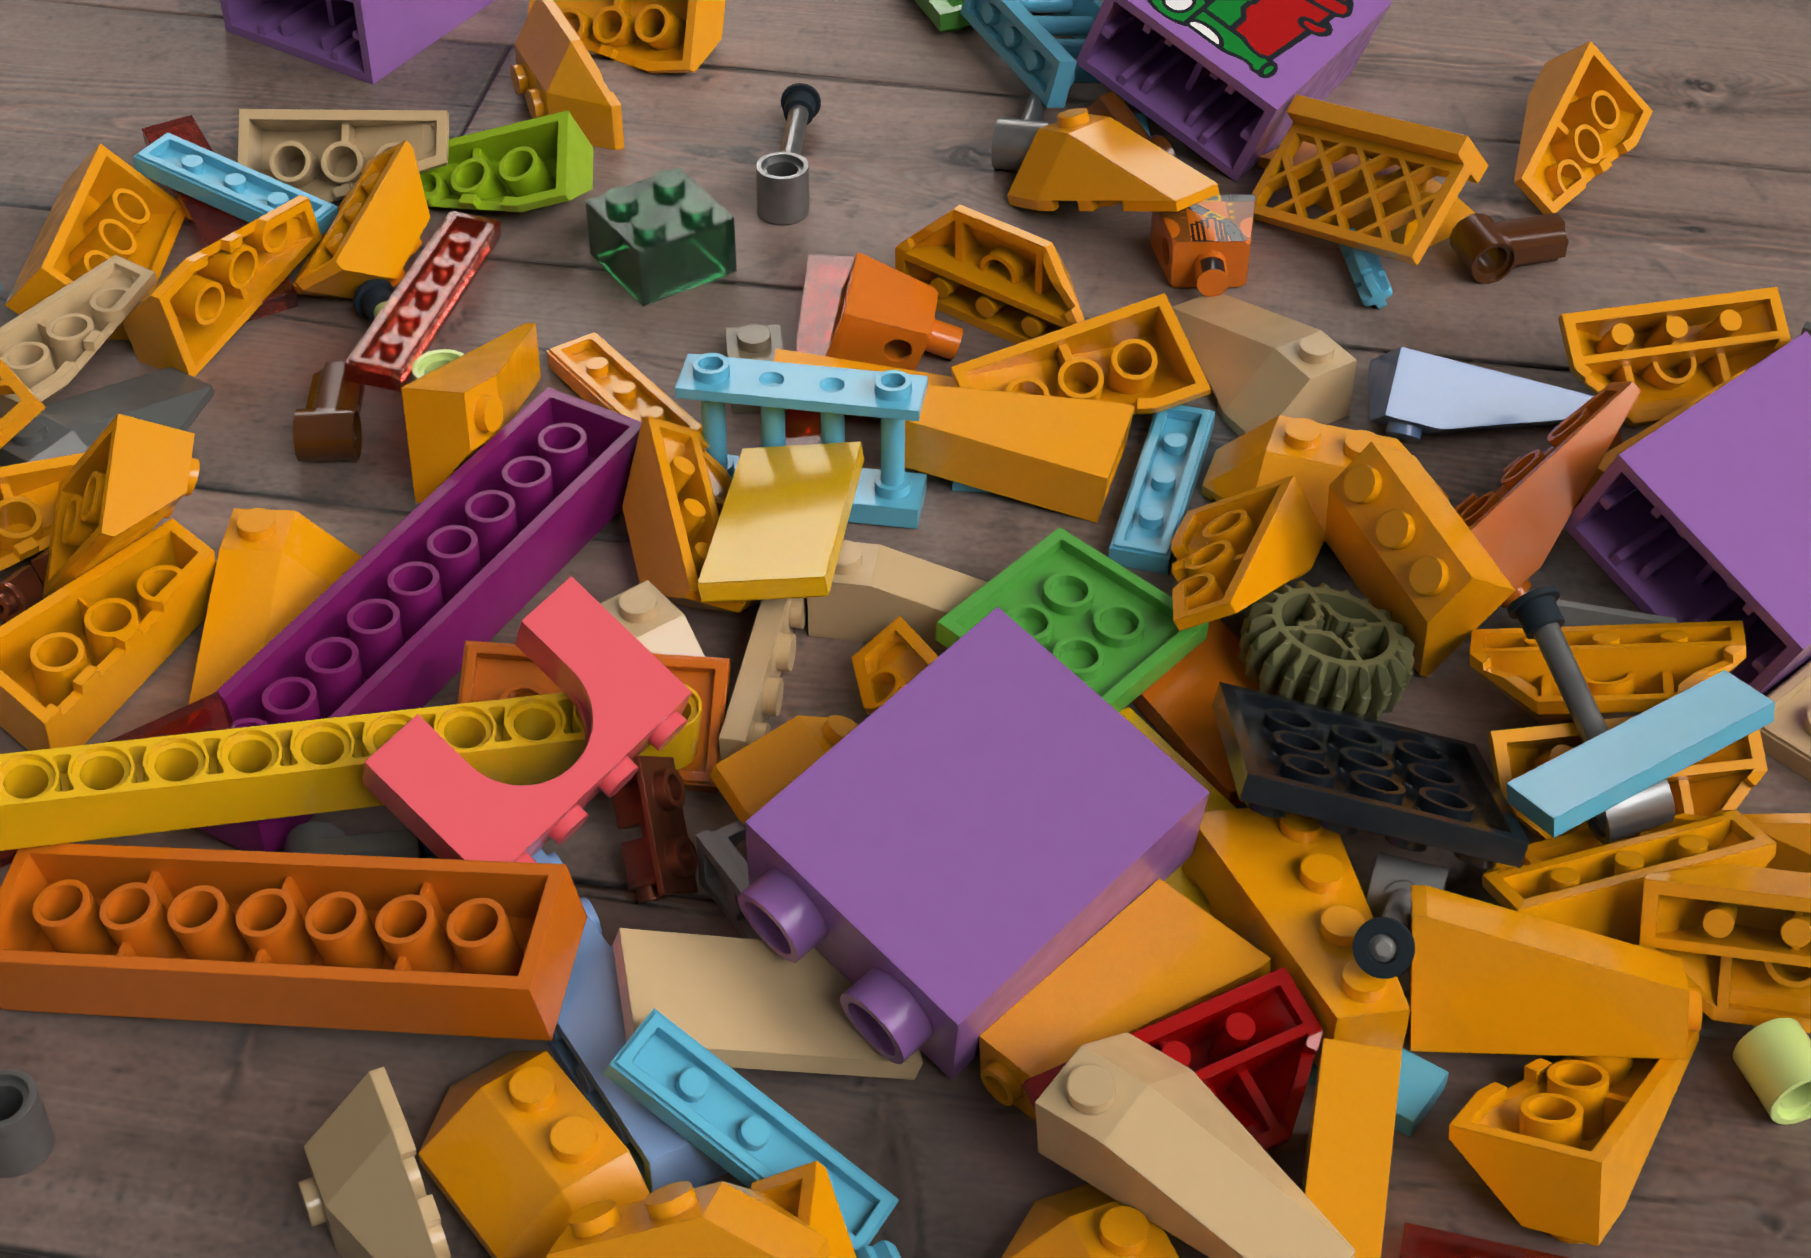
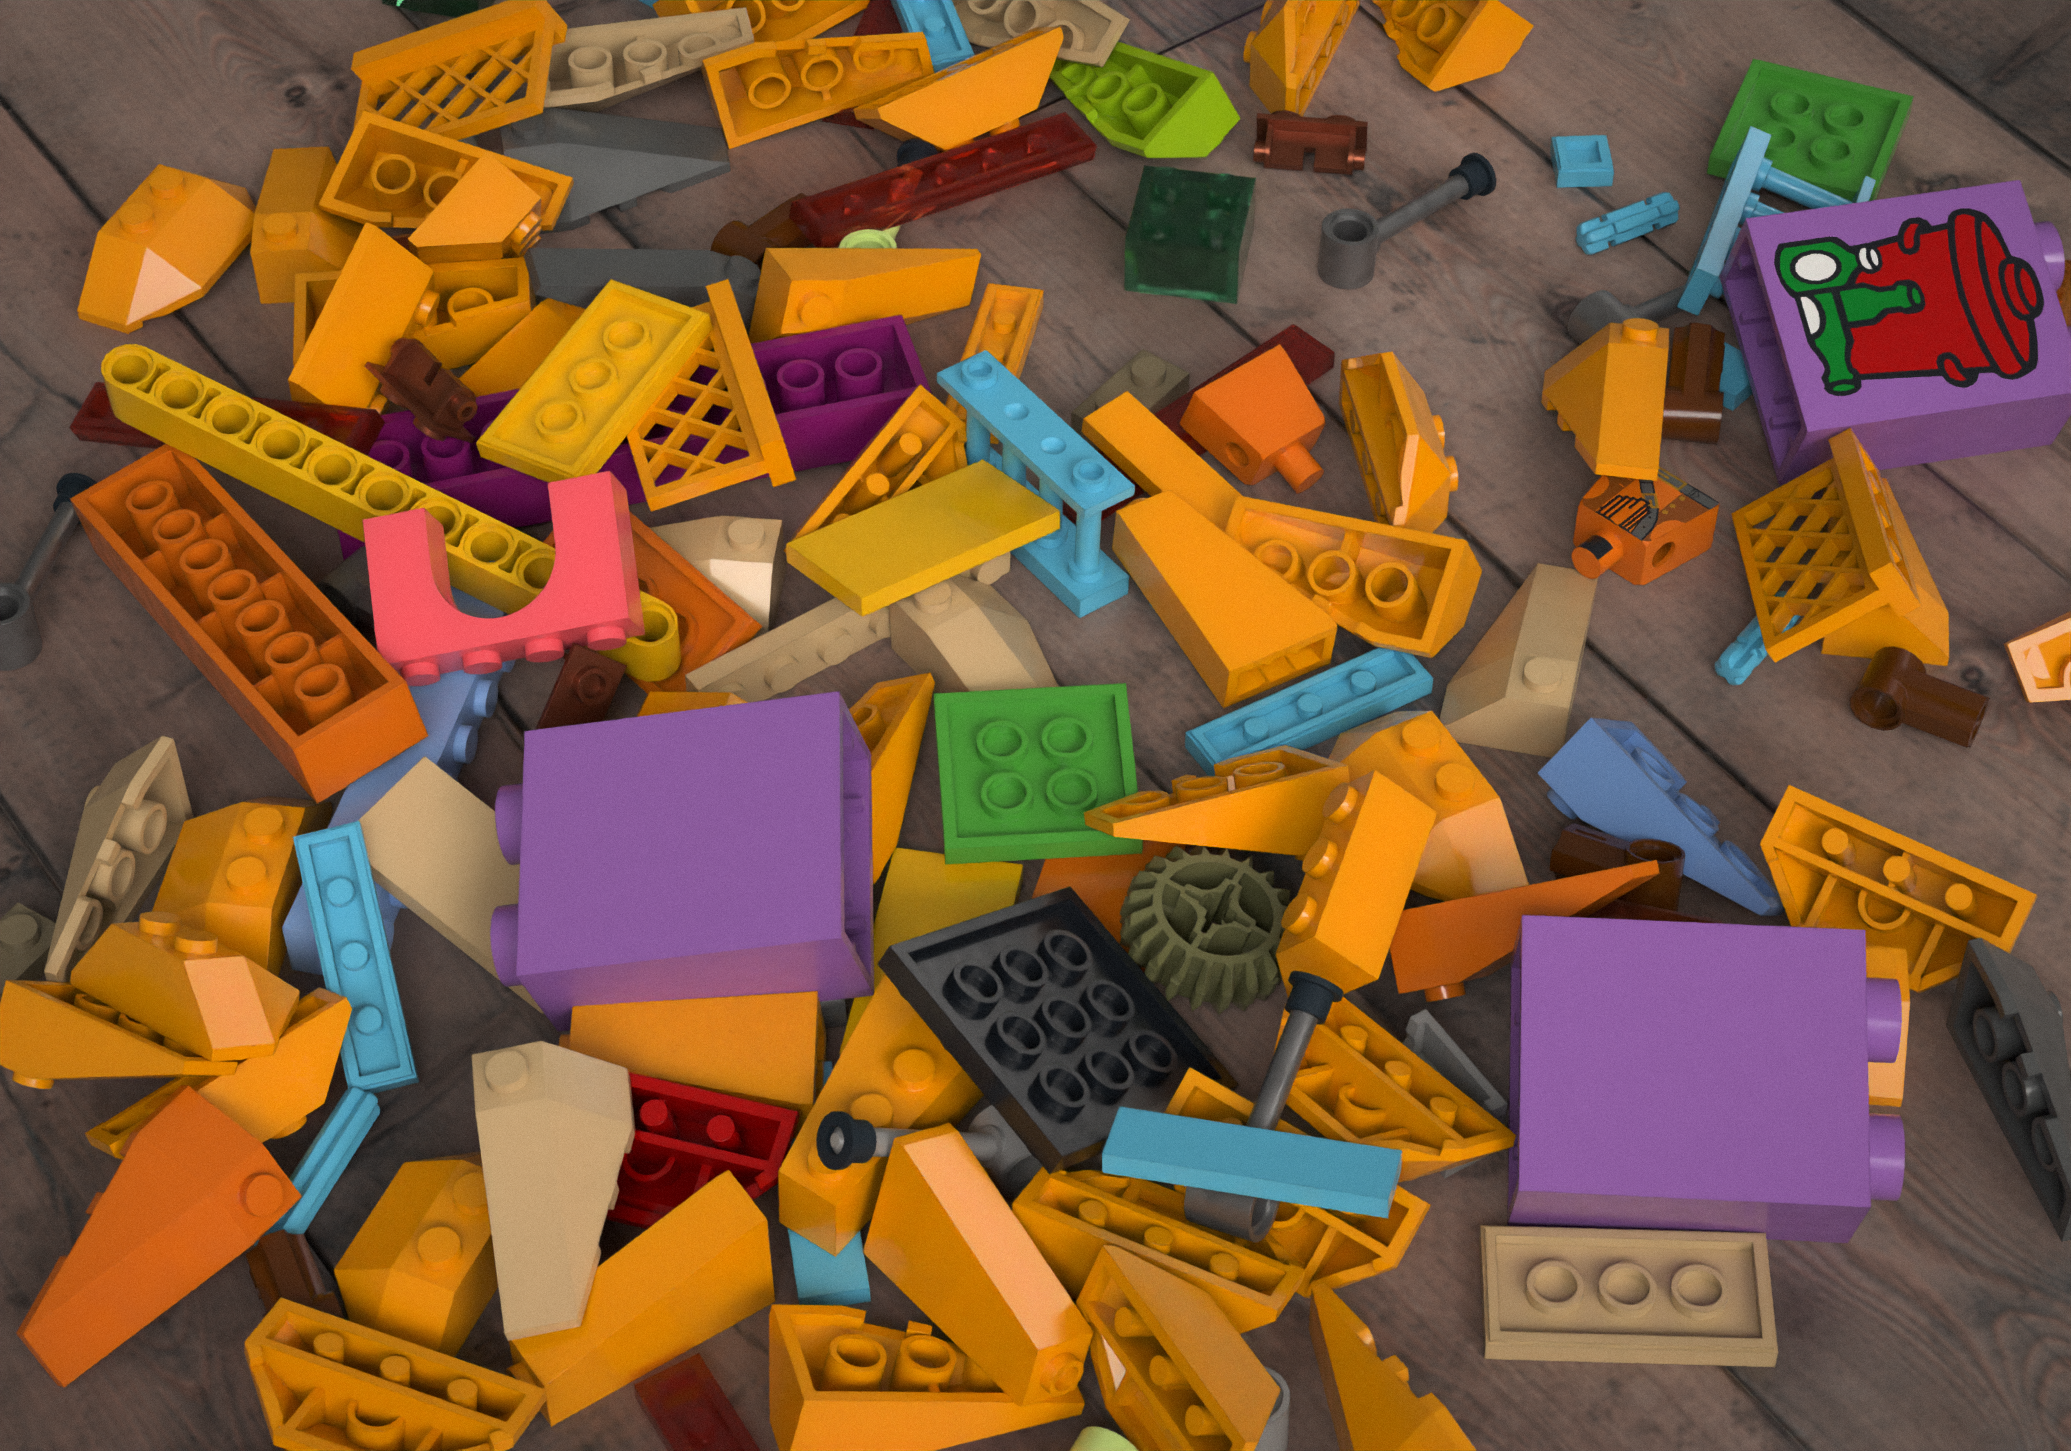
camera: 45 degrees right, 5 degrees up
(107, 638) = (371, 306): none -> light orange slope
(209, 651) = (438, 405): none -> copper hinge
(322, 477) = (677, 275): none -> dark grey wedge
(382, 568) = (594, 384): none -> yellow tile
(507, 492) = (746, 399): none -> light orange fence
(639, 146) = (1335, 140): none -> copper hinge
(850, 64) = (1581, 161): none -> medium azure tile
(934, 83) = (1627, 223): none -> medium azure axle
(1492, 445) = (1589, 851): none -> reddish brown piece

